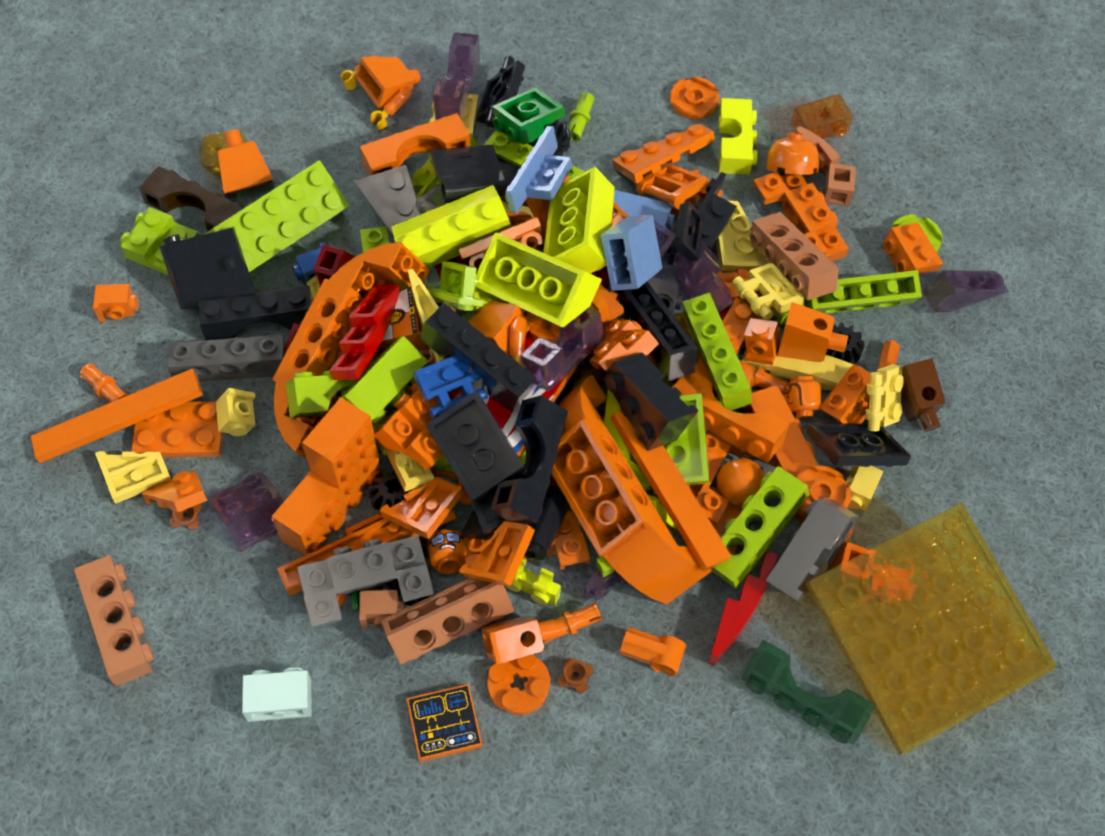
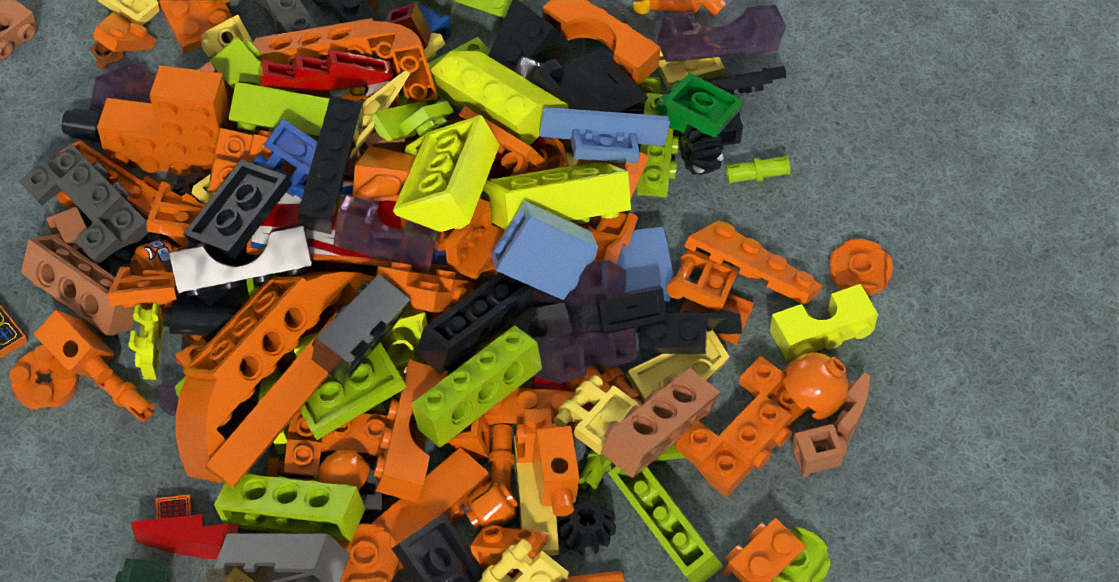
camera: 65 degrees right, 5 degrees down
(261, 557) = (81, 124): none -> black brick
(575, 666) = (68, 414): dark orange plate -> none
(660, 653) = (124, 478): orange piece -> none
(702, 626) = (173, 506): none -> tile
(824, 117) = (906, 400): clear orange brick -> none

